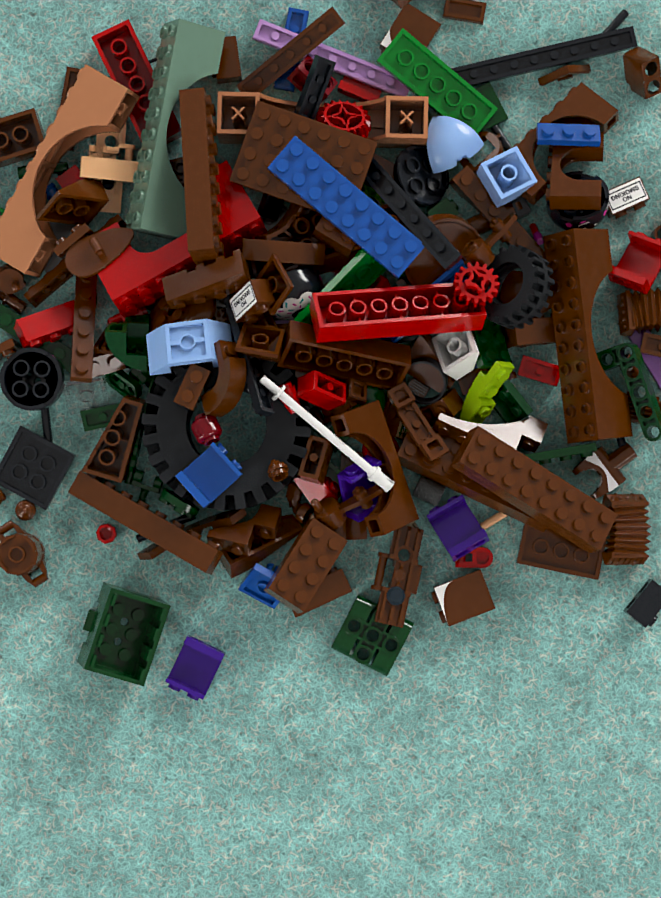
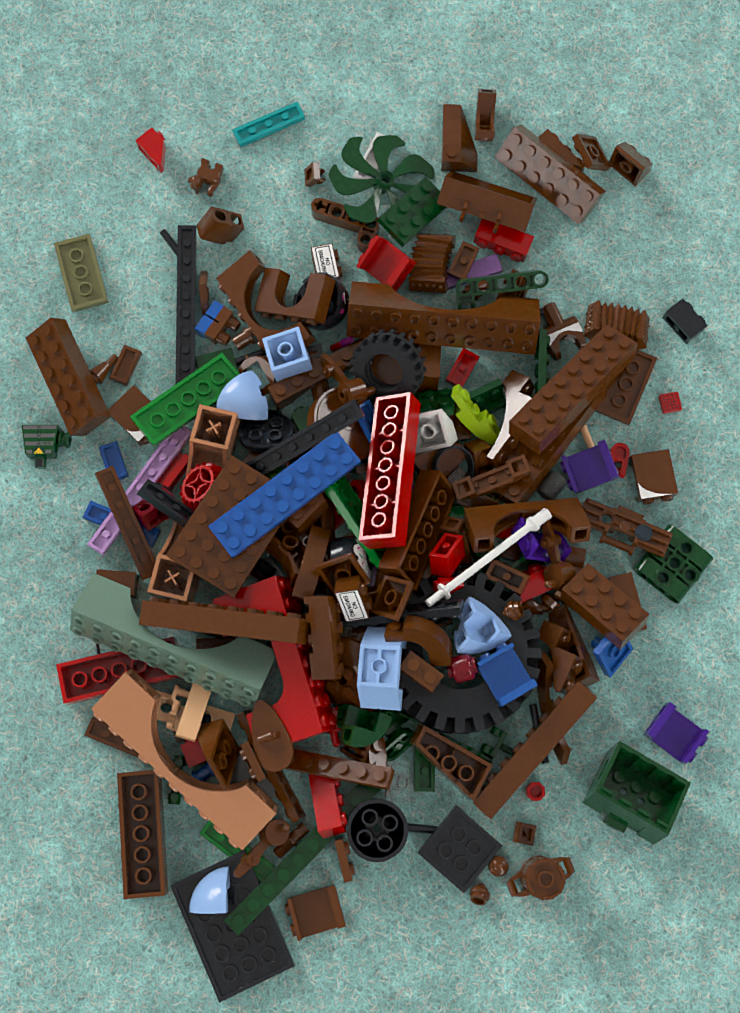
camera: 80 degrees left, 10 degrees down
(62, 530) = (524, 833): none -> reddish brown tile
(180, 504) = (526, 710): dark green tile -> none
(250, 438) = (479, 629): none -> light blue brick
(357, 24) = (112, 457): none -> blue tile
(470, 288) = (379, 395): red gear -> none
(519, 127) = (244, 339): none -> reddish brown bush
(521, 96) = (216, 322): none -> reddish brown hips
(551, 603) = (670, 402): none -> tile
(568, 134) = (261, 296): blue plate -> none

